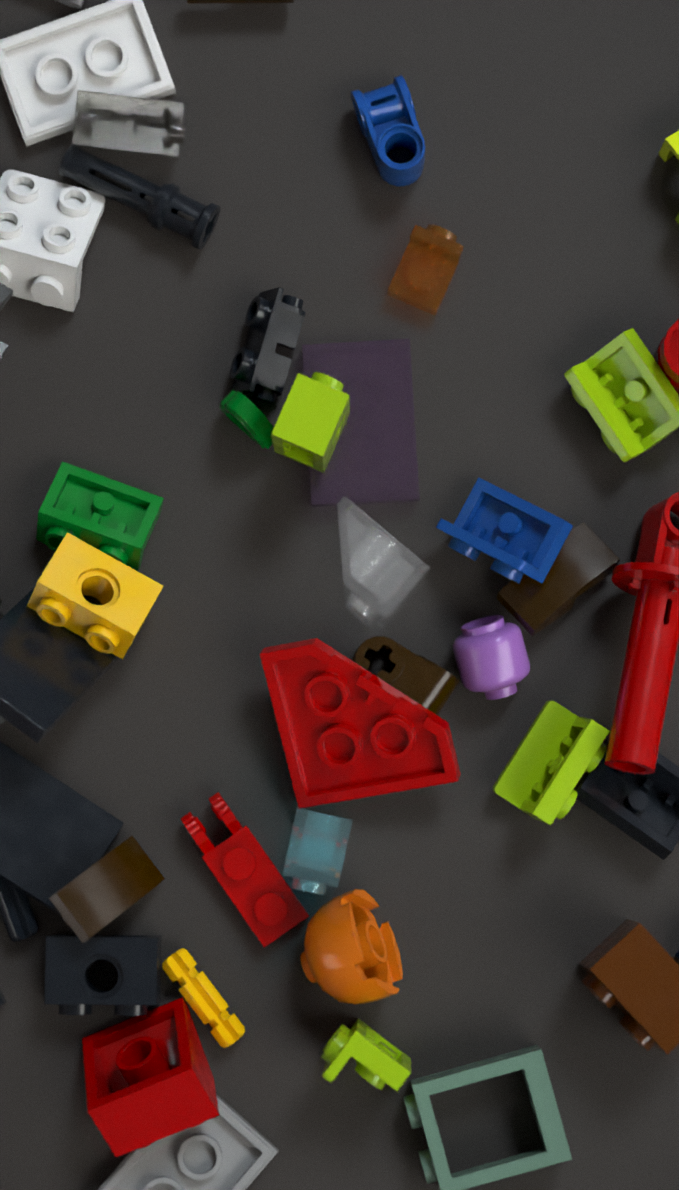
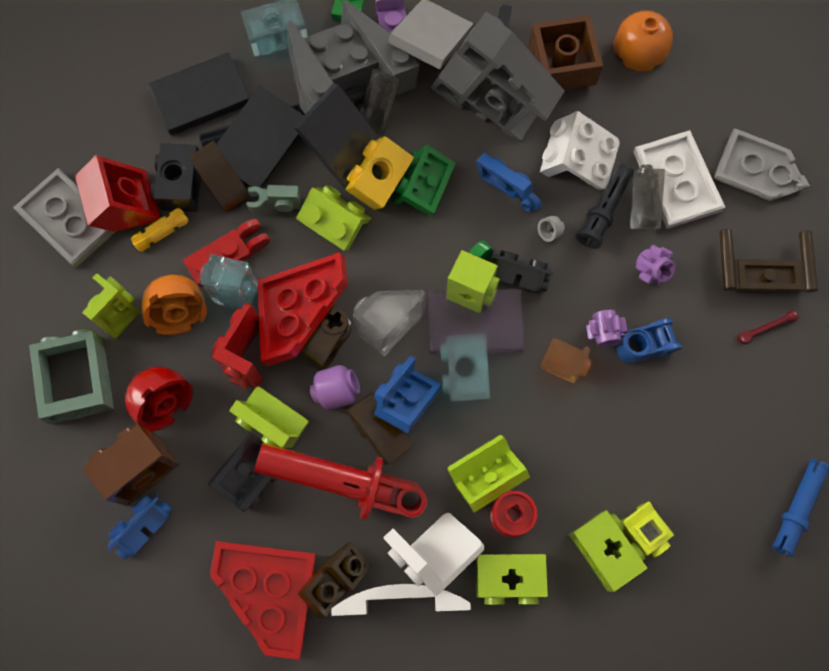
camera: 95 degrees right, 10 degrees down
(85, 387) = (507, 181): none -> blue hinge
(142, 773) = (279, 197): none -> sand green plate
(172, 679) = (332, 216): none -> lime bracket
(191, 302) = (547, 224): none -> light grey hinge
(255, 113) = (655, 265): none -> medium lavender gear
(372, 199) = (606, 328): none -> medium lavender gear
(475, 821) = (231, 347): none -> red bracket
(477, 418) = (476, 384): none -> clear light blue brick
(519, 963) = (156, 396): none -> red cylinder

